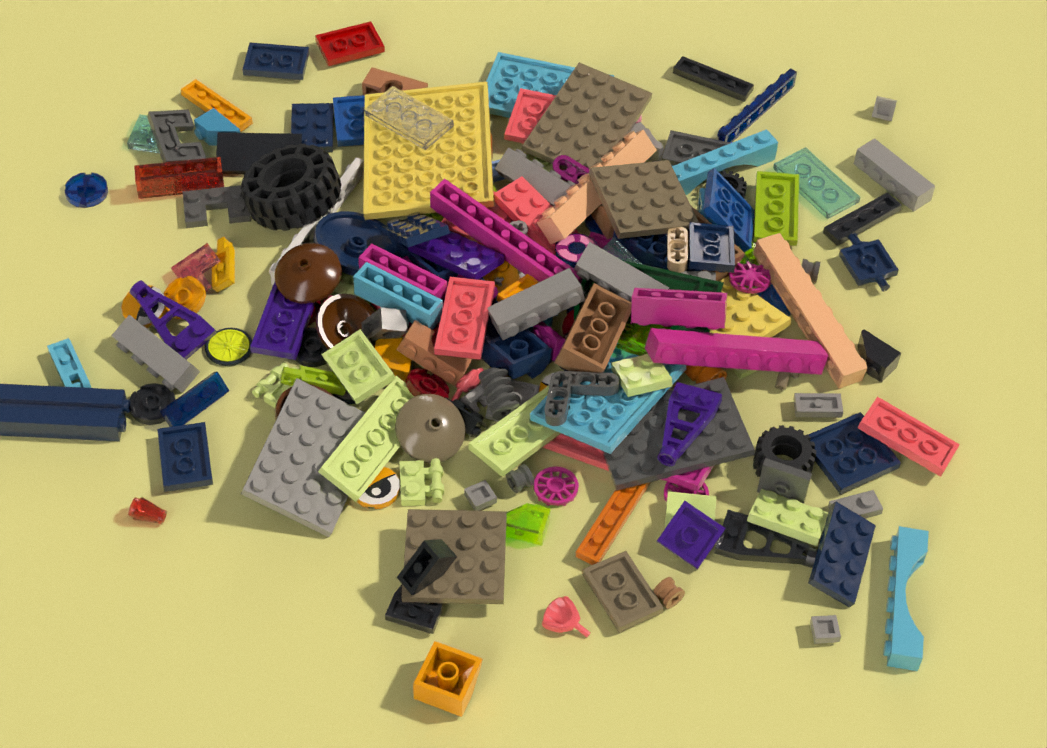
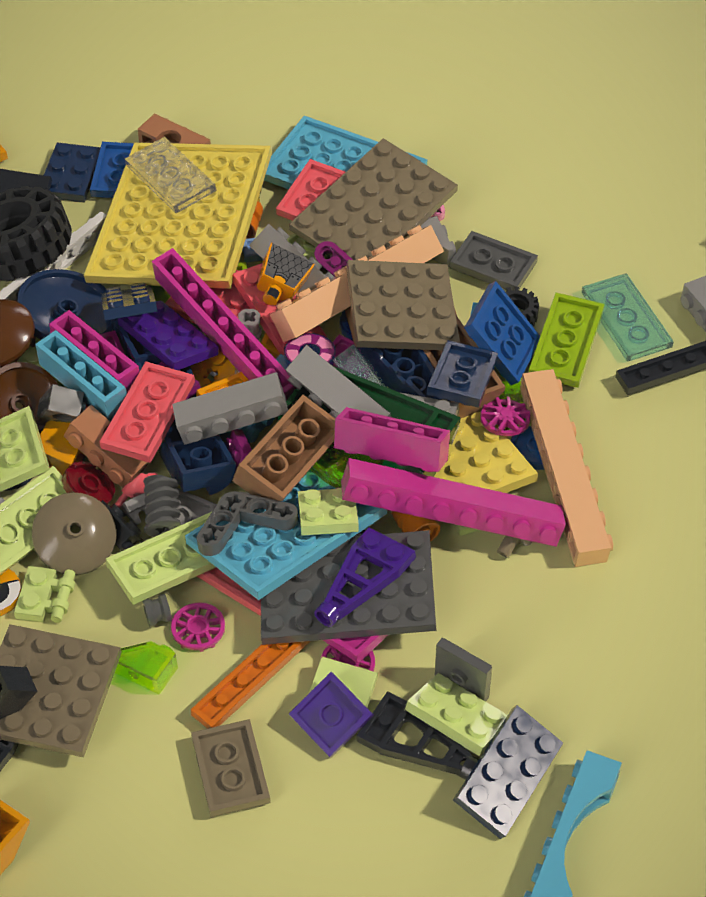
camera: 15 degrees right, 0 degrees up
(276, 61) = (56, 93): dark blue plate -> none
(349, 43) = (144, 84): red plate -> none
(480, 495) = (105, 622): light grey plate -> none
(535, 188) = (282, 274): none -> torso
(563, 617) = (149, 786): coral piece -> none
(669, 592) = (283, 780): medium nougat wheel -> none
(673, 254) = (423, 378): tan beam -> none
(713, 78) = (543, 179): black plate -> none
(752, 150) = (560, 267): medium azure arch -> none
(758, 107) = (584, 219): clear blue plate -> none
(785, 442) = (482, 621): black tyre -> none
(811, 268) = (583, 419): dark grey wheel -> none
(818, 405) = (540, 583): light grey plate -> none
(825, 629) = (458, 861): light grey plate -> none
(851, 455) = (561, 648): dark blue plate -> none
(864, 504) = (553, 714): light grey plate -> none
(868, 262) = (658, 420): dark blue plate -> none
(878, 355) = (632, 536): black slope -> none
(908, 436) = (637, 640): coral plate -> none

